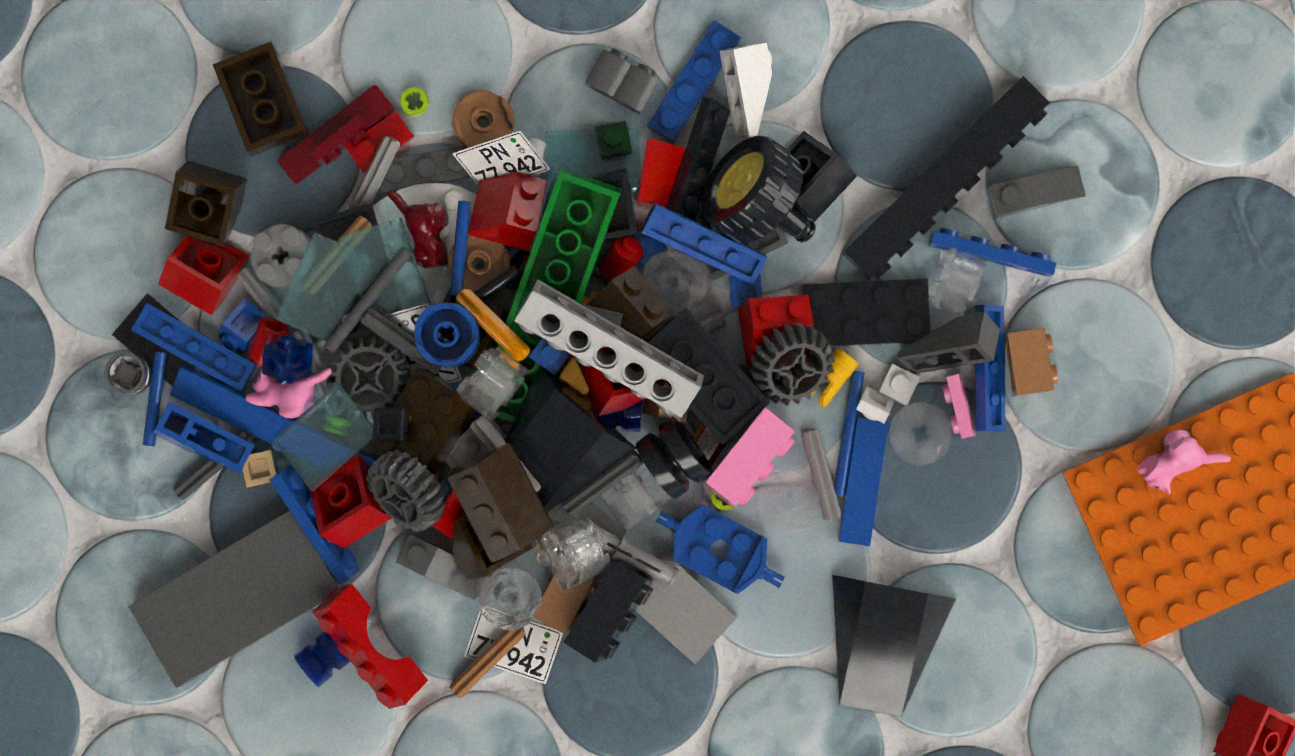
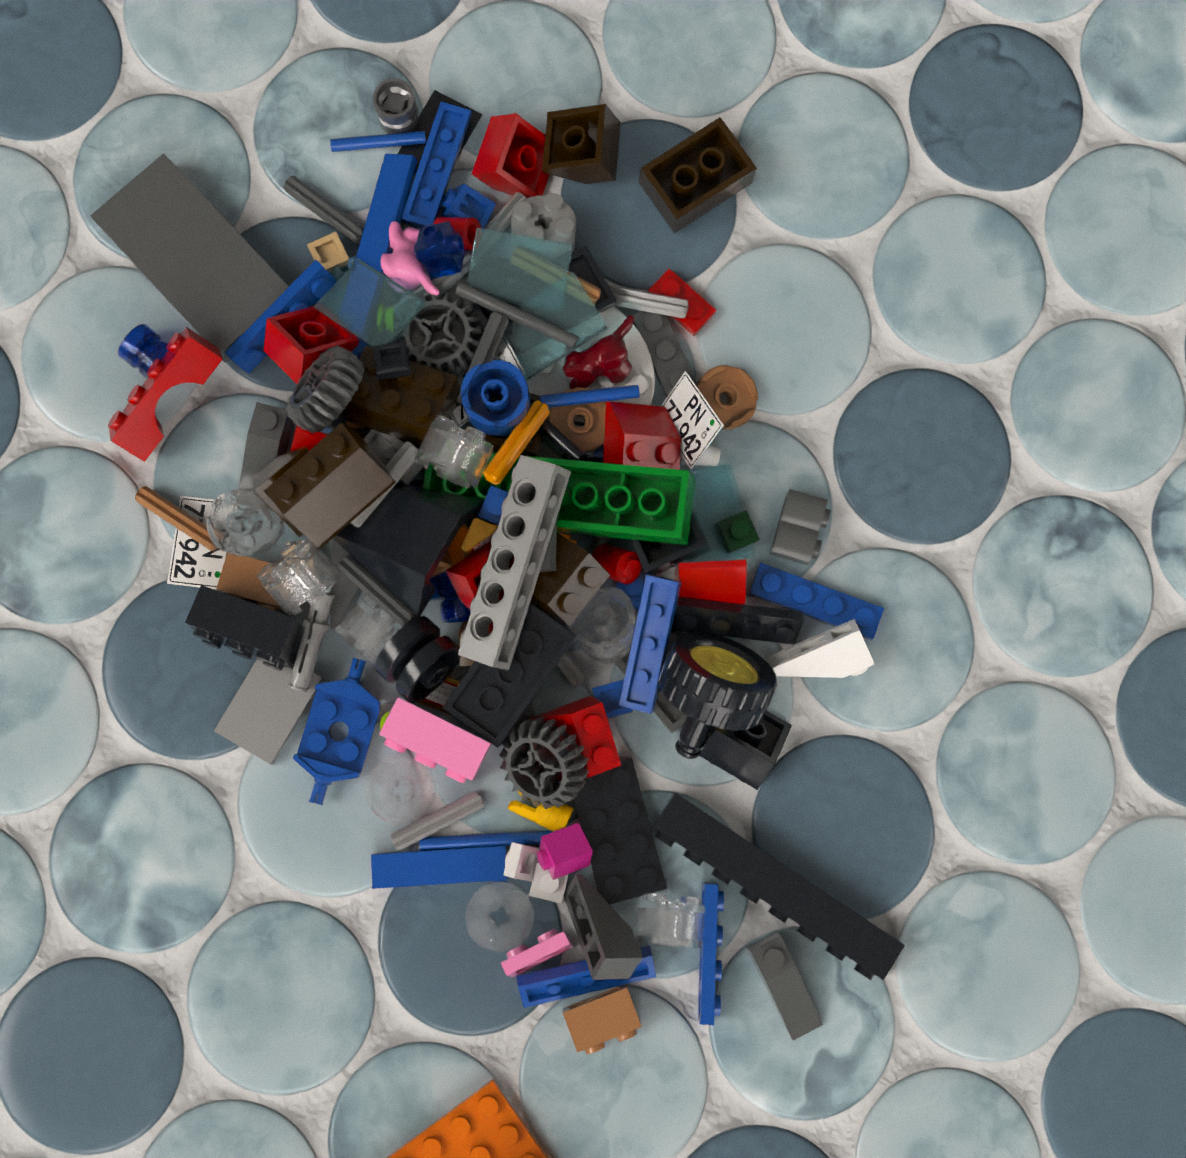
camera: 70 degrees right, 5 degrees down
(203, 438) = (346, 189): blue slope -> none
(330, 139) = (675, 254): dark red bracket -> none
(405, 104) = (723, 320): lime bush -> none
(874, 363) = (564, 851): none -> dark pink brick
(883, 641) = (274, 925): black wedge -> none

